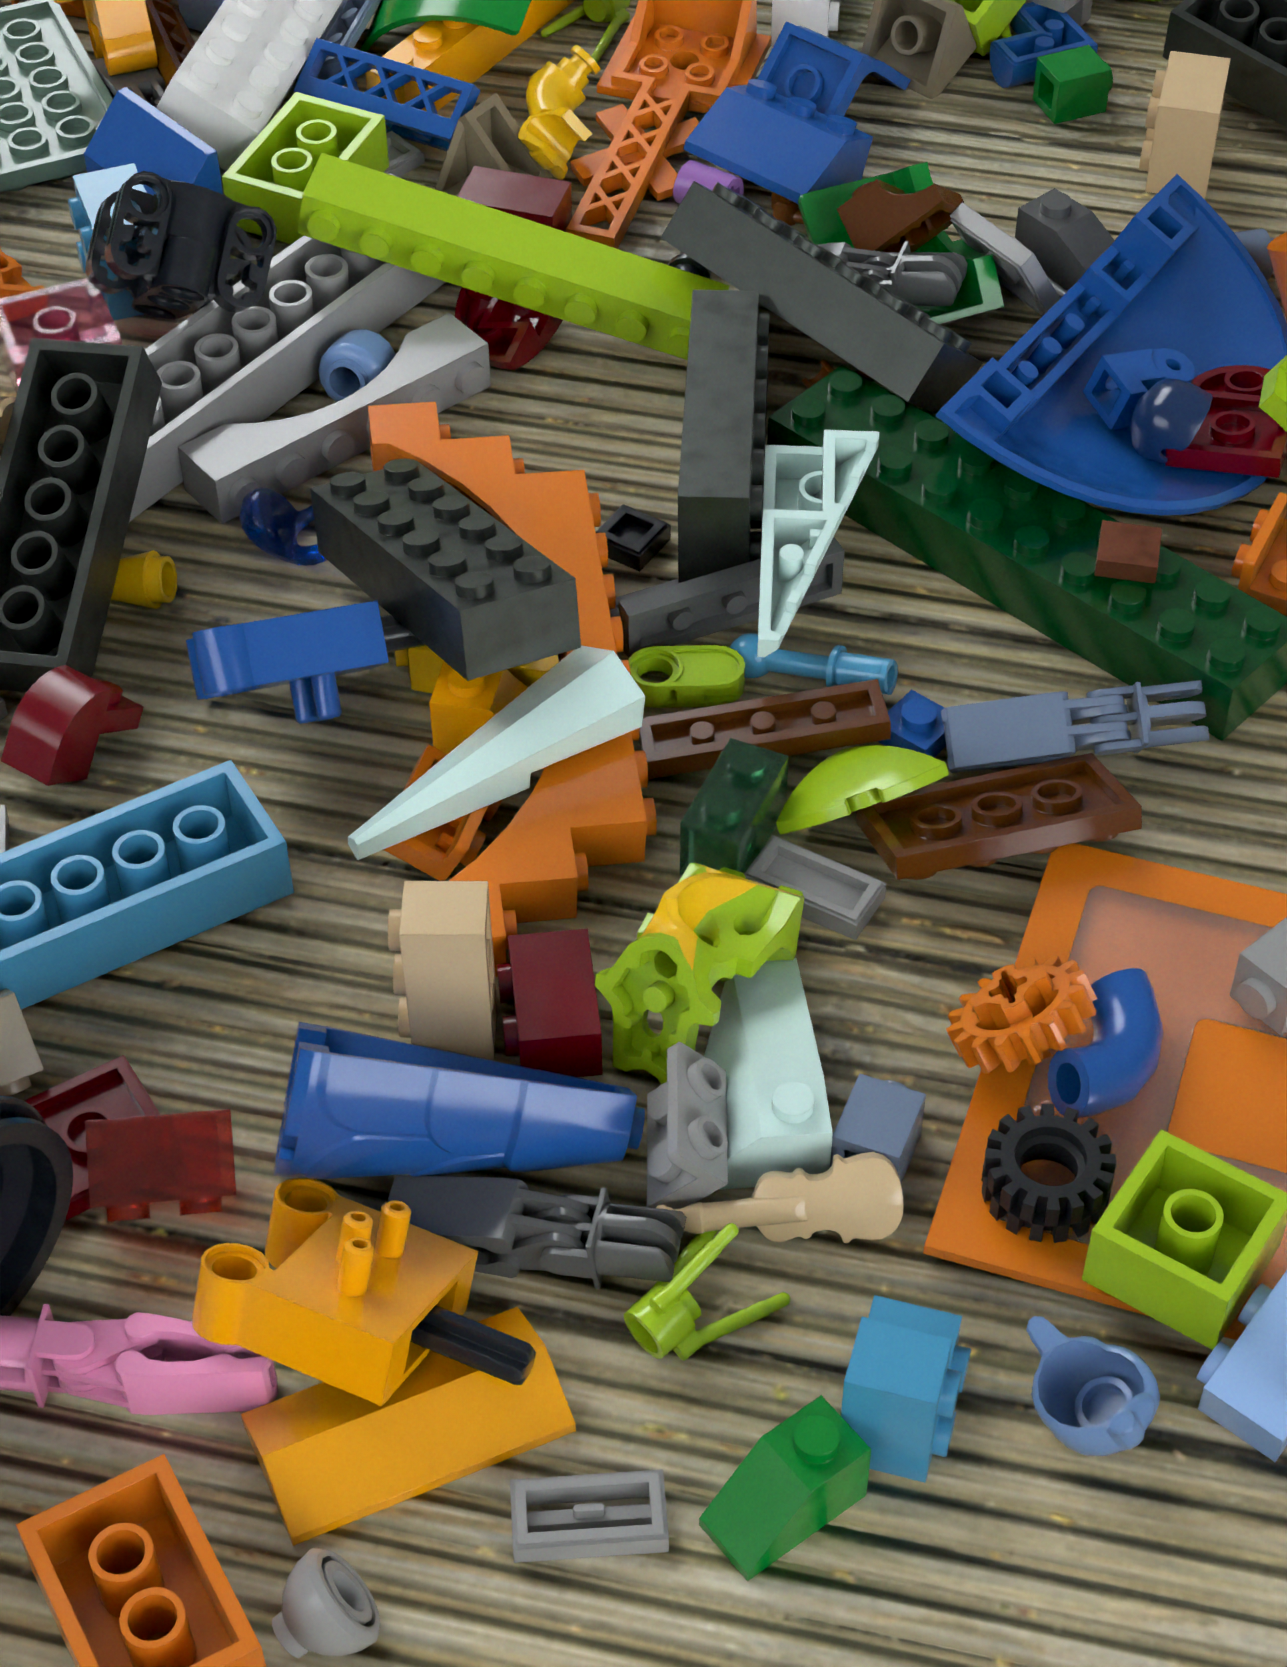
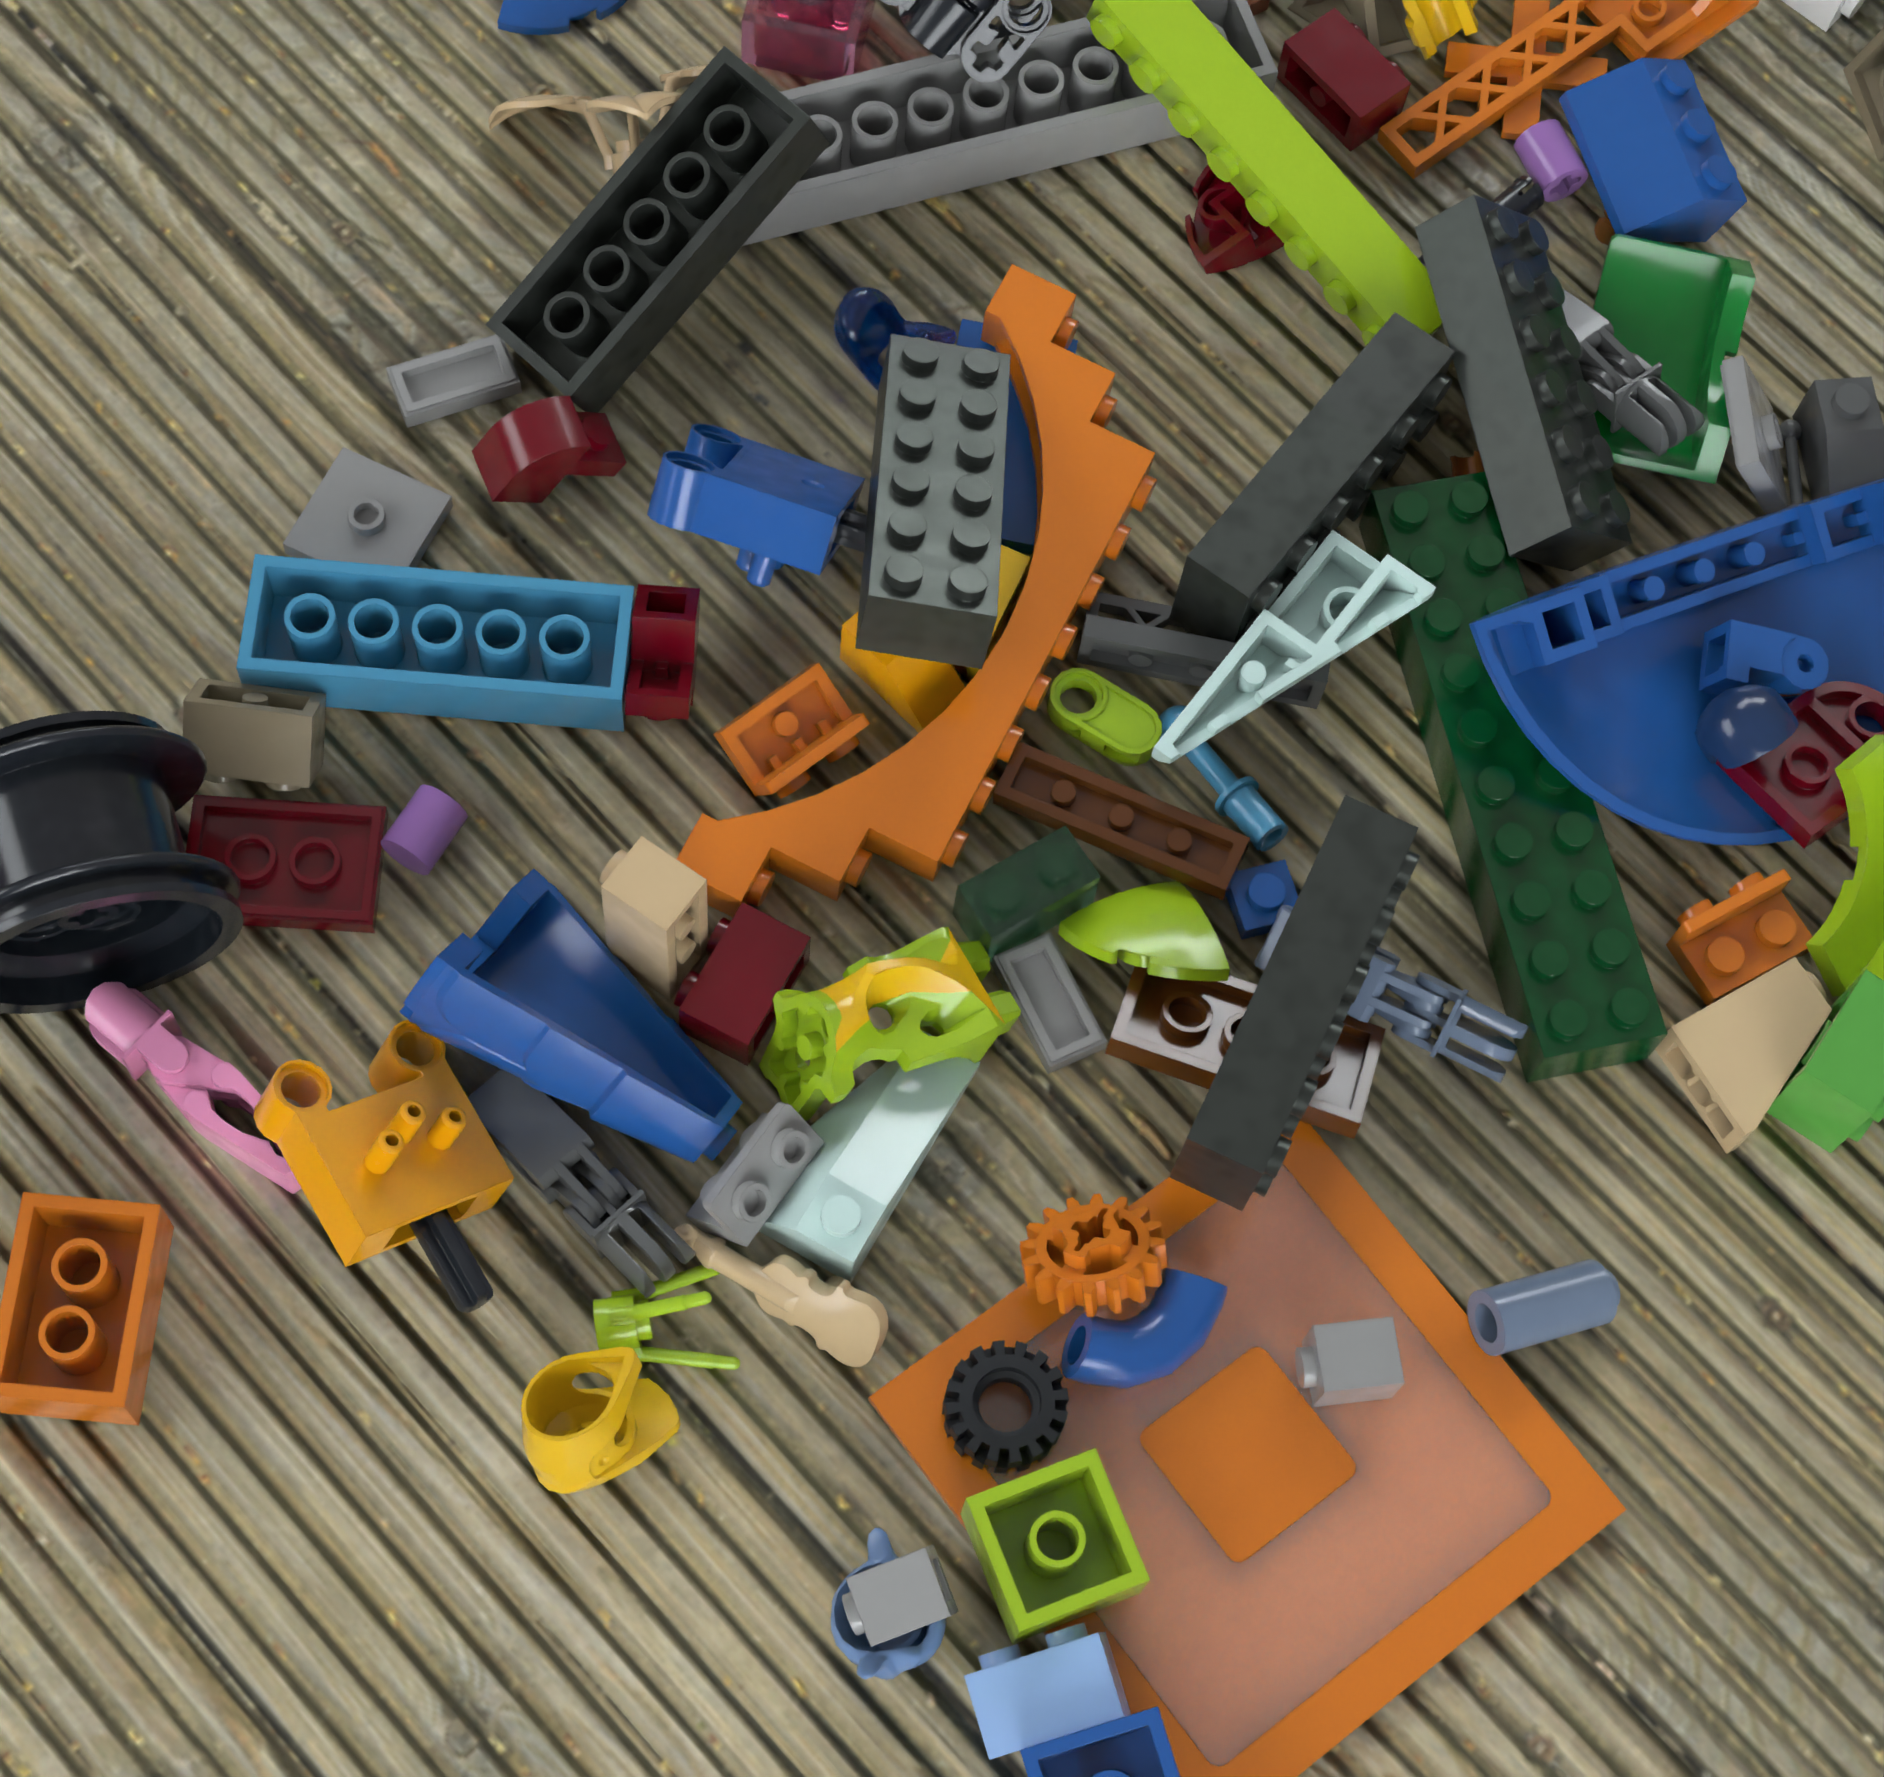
camera: 25 degrees right, 20 degrees up
(146, 580) = (717, 324): yellow cone -> none
(160, 1163) = (337, 936): clear red brick -> none
(174, 1050) = (424, 829): none -> medium lavender piece
(293, 802) = (663, 652): none -> dark red brick
(326, 1608) = (213, 1394): light grey brick -> none
(347, 1458) = (390, 1299): light orange slope -> none
(353, 362) = (1061, 191): medium blue head -> none
(434, 364) = (890, 246): light grey arch -> none
(563, 713) = (916, 716): light aqua wedge -> none
(589, 1528) = (502, 1474): light grey tile -> none
(634, 537) = (1169, 531): black tile -> none
(710, 1420) = (593, 1434): none -> yellow helmet
(788, 1488) = (602, 1529): green slope -> none
(822, 69) = (1772, 74): blue piece -> none
(882, 1120) = (910, 1273): sand blue brick -> none
(885, 217) = (1676, 322): reddish brown arch -> none
(905, 1385) = (747, 1505): dark azure brick -> none
(1033, 736) = (1299, 1006): none -> pearl dark grey brick
(1101, 1347) = (898, 1596): none -> light grey brick
(1128, 551) = (1562, 859): copper tile -> none

